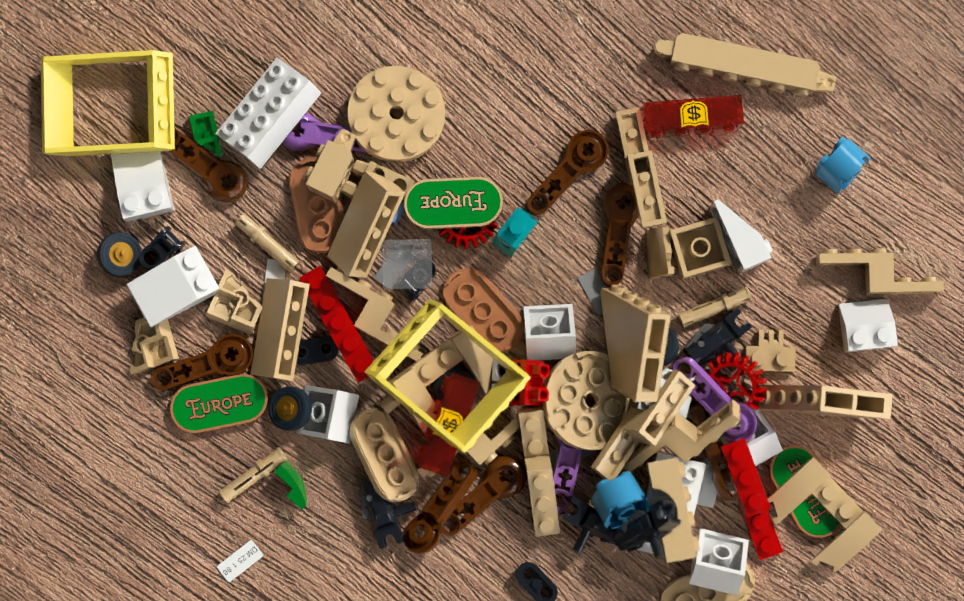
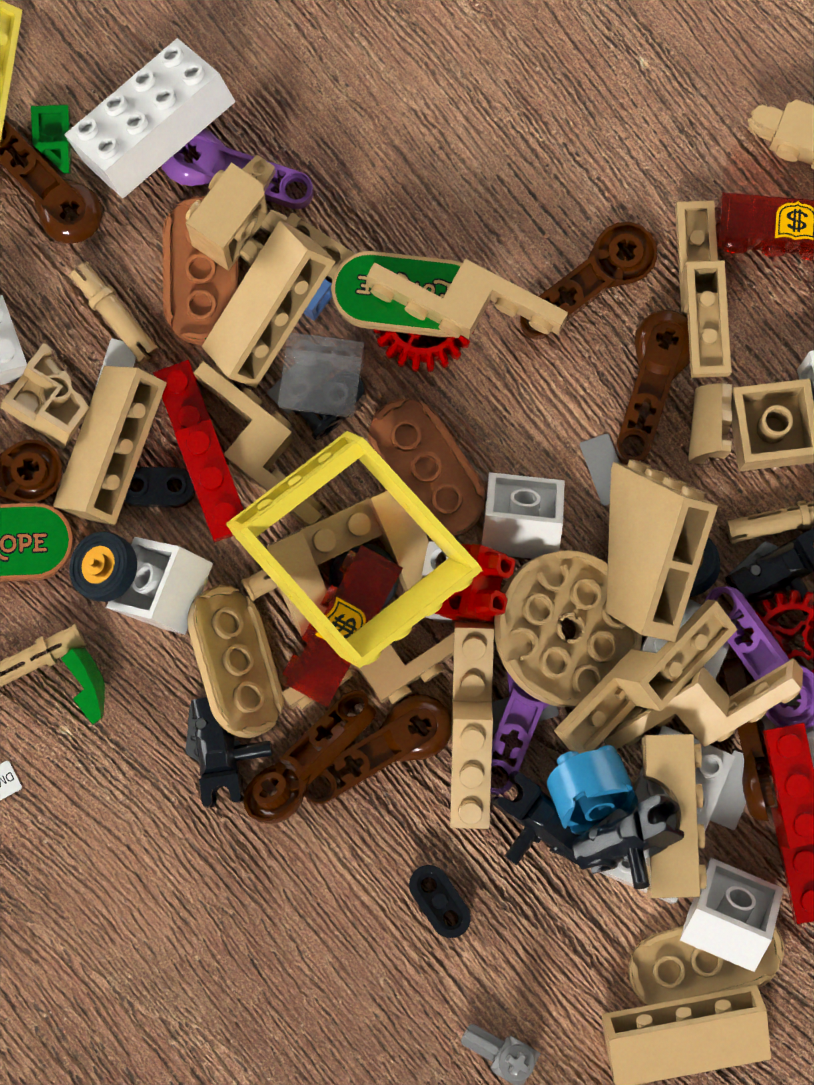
camera: 10 degrees right, 5 degrees down
(389, 137) = (334, 187): tan plate -> none
(491, 203) = (466, 300): none -> tan bracket
(515, 231) = (495, 354): teal torso -> none

